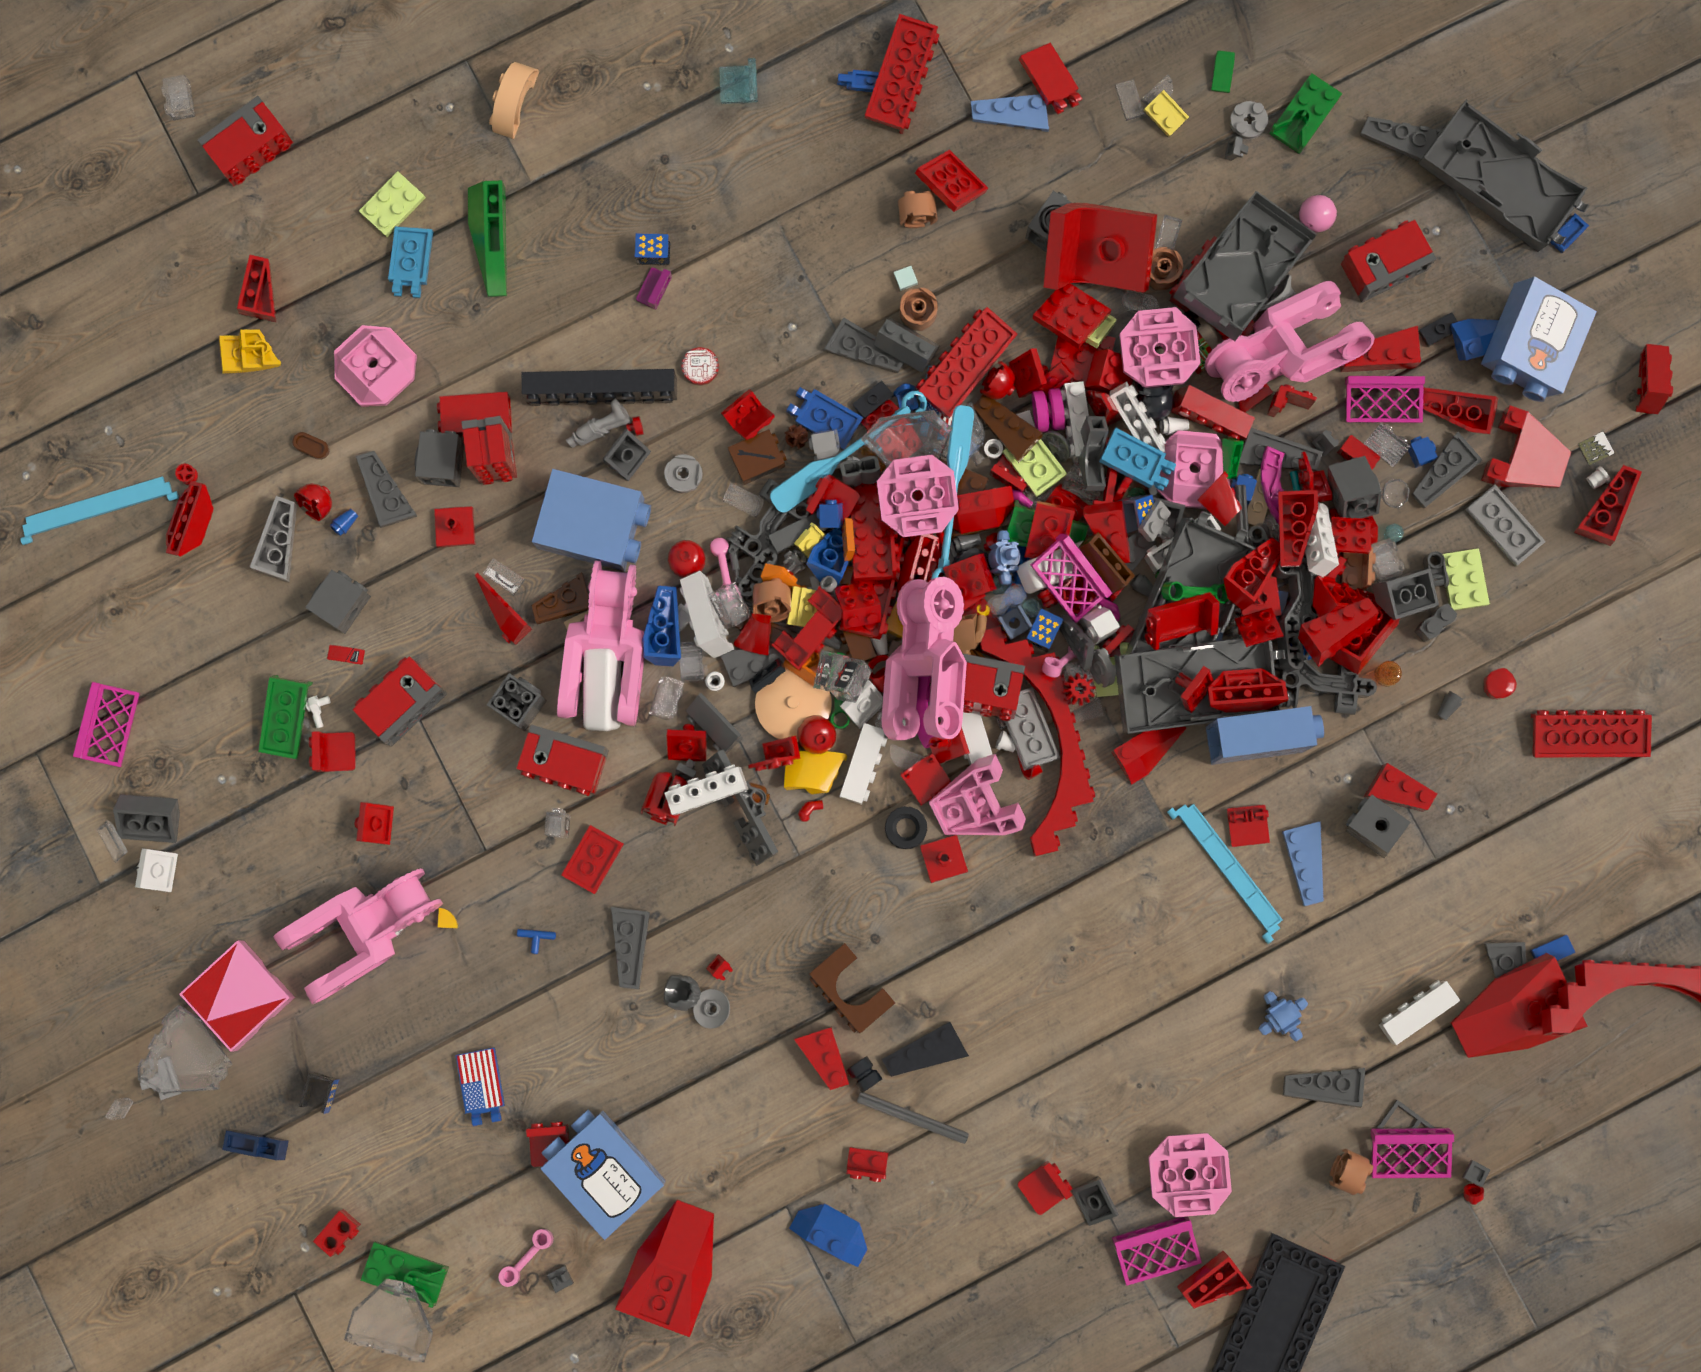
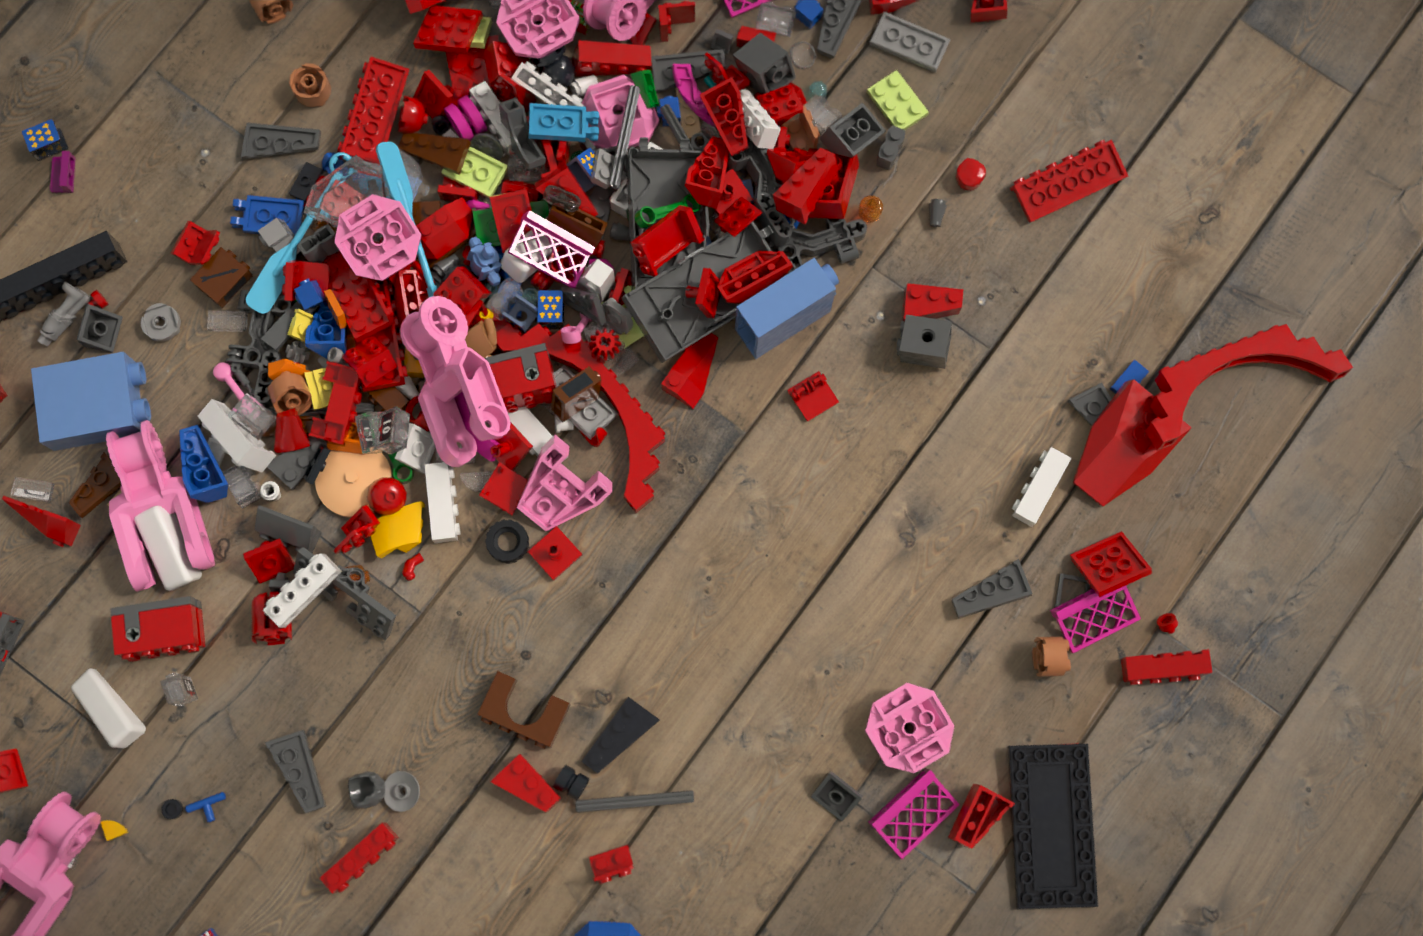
camera: 30 degrees left, 5 degrees down
(485, 809) = (107, 710): none -> white piece
(505, 926) = (172, 809): none -> black tile
(517, 701) = (90, 594): dark grey brick -> none
(592, 859) = (228, 707): red plate -> none
(650, 1049) = (358, 858): none -> red brick
(667, 698) = (232, 527): clear brick -> none
(686, 558) = (195, 394): red cylinder -> none
(700, 366) = (135, 222): tile -> none
(718, 967) = (390, 750): red tile -> none
(796, 436) = (249, 243): copper gear -> none
(905, 278) = (287, 65): light aqua tile -> none
(905, 344) = (312, 120): dark grey slope -> none
(993, 443) = (432, 170): white piece -> none
(1022, 402) = (443, 128): none -> black bush
(1031, 724) = (576, 394): none -> reddish brown brick
(1045, 1187) = (785, 806): red bracket -> none
(1103, 536) = (562, 198): none -> clear smoke plate
(1188, 500) = (624, 137): none -> dark grey axle
(1221, 500) = (653, 125): red slope -> none
(1230, 868) = (815, 440): medium azure piece -> none
(1283, 1016) = (924, 547): medium blue piece -> none
(1306, 860) = (878, 402): medium blue wing -> none
(1438, 571) = (871, 102): dark grey piece -> none
(1447, 1115) = (1111, 564): none -> red plate
(1452, 1232) = (1166, 666): none -> red wedge
(1476, 1173) = (1160, 603): dark grey tile -> none

